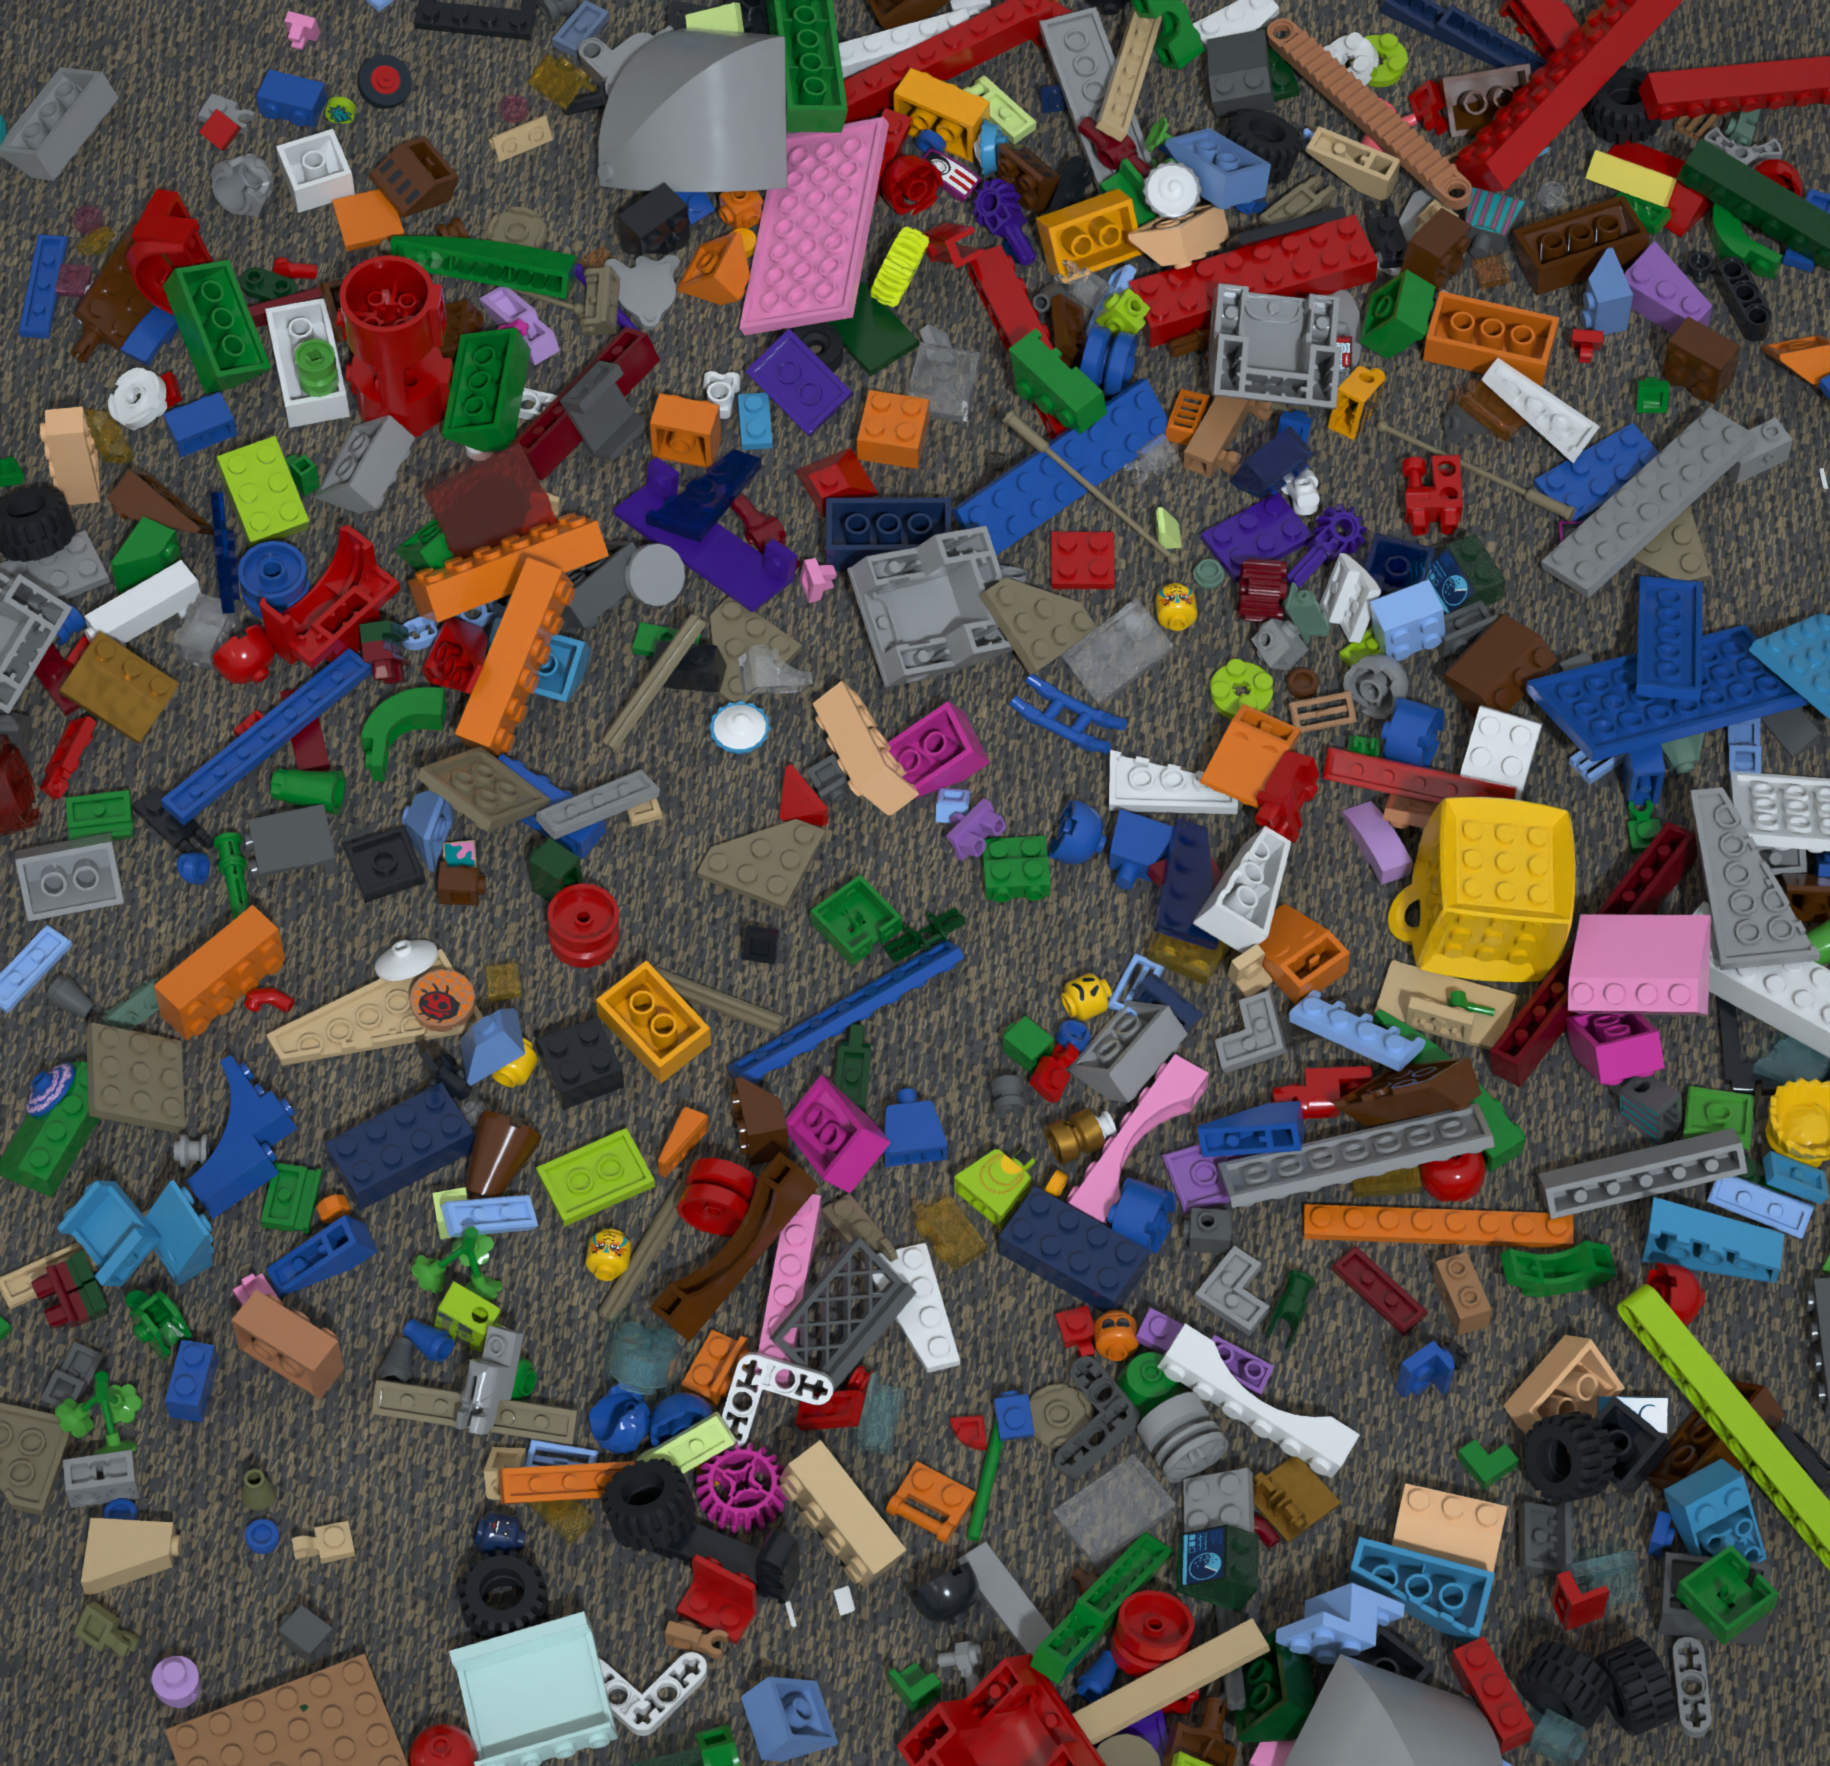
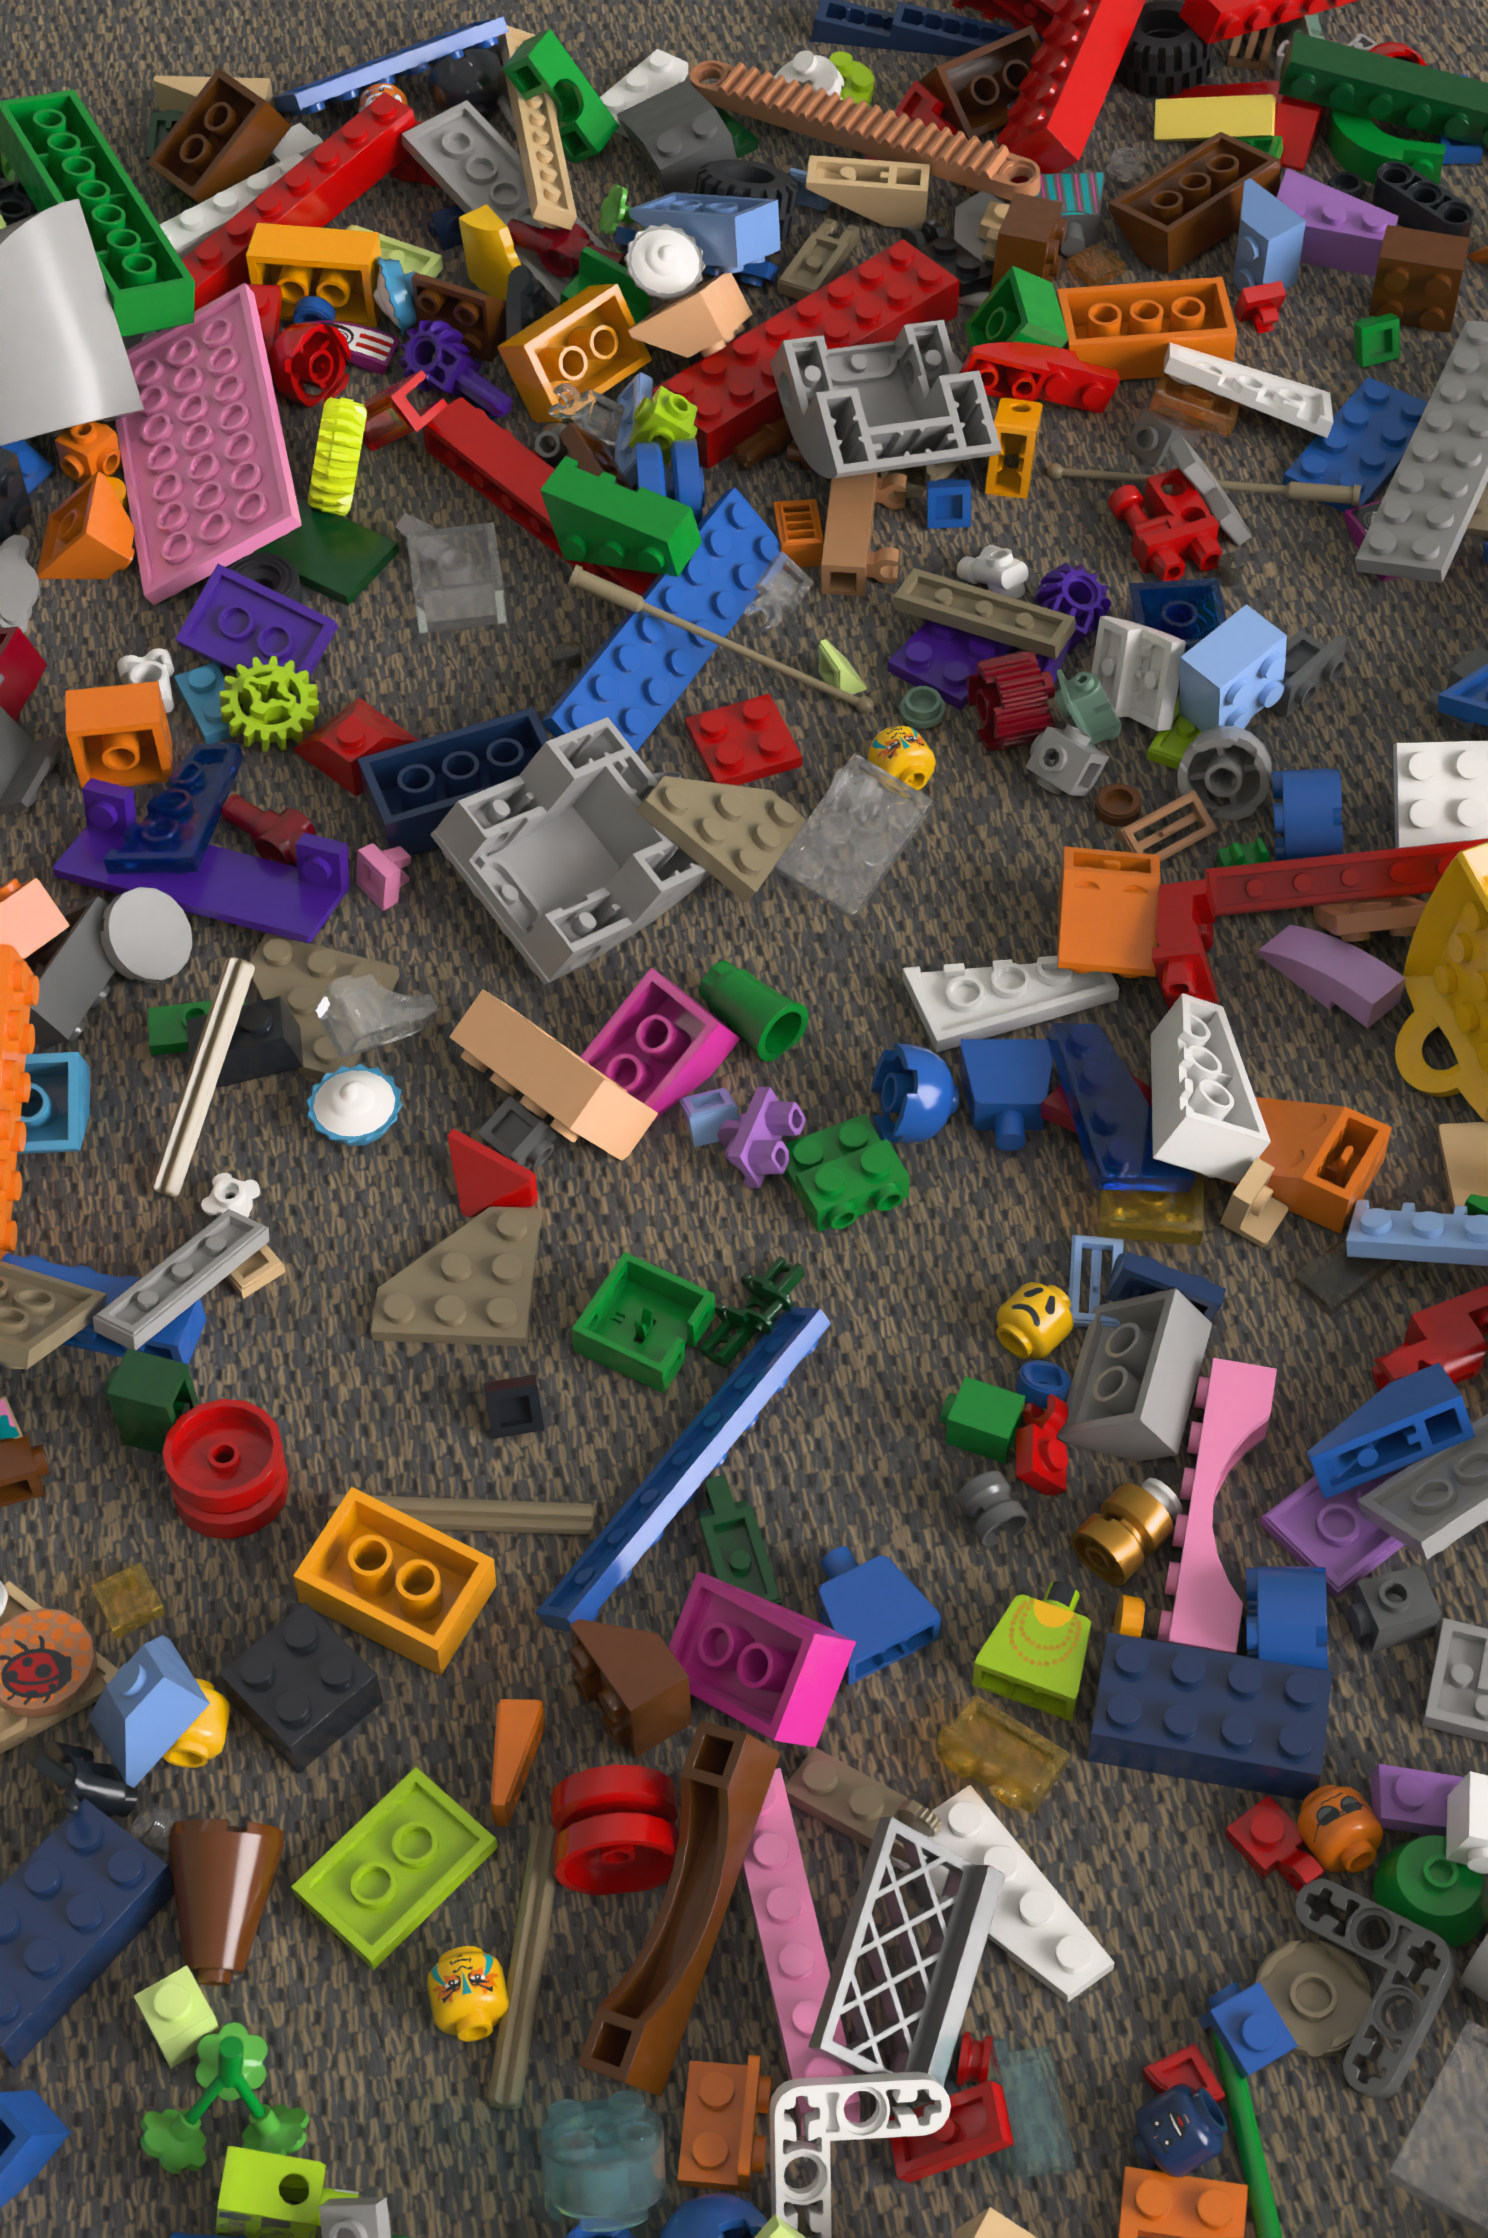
camera: 20 degrees left, 5 degrees down
(489, 1215) = (243, 2000): light blue tile -> none
(646, 753) = (224, 1186): none -> white plate
(789, 423) = (267, 699): none -> lime gear
(893, 429) = (411, 654): orange brick -> none
(952, 1452) = (1179, 2130): none -> dark blue head
(1006, 747) = (754, 1010): none -> green plant
(1058, 701) = (799, 927): blue piece -> none
(1065, 132) = (488, 250): none -> yellow slope
(1240, 674) = (1035, 817): lime plate -> none
(1259, 1040) = (1320, 1294): light grey plate -> none
(1273, 464) = (953, 538): clear blue slope -> none
(1273, 522) = (984, 613): none -> dark tan plate
(1283, 228) = (808, 283): black tile -> none
(1390, 349) = (1043, 373): none -> red slope
(1465, 575) = (1275, 593): slope -> none
(1476, 490) = (1213, 494): none -> light grey tile
(1499, 665) = (1377, 698): reddish brown slope -> none

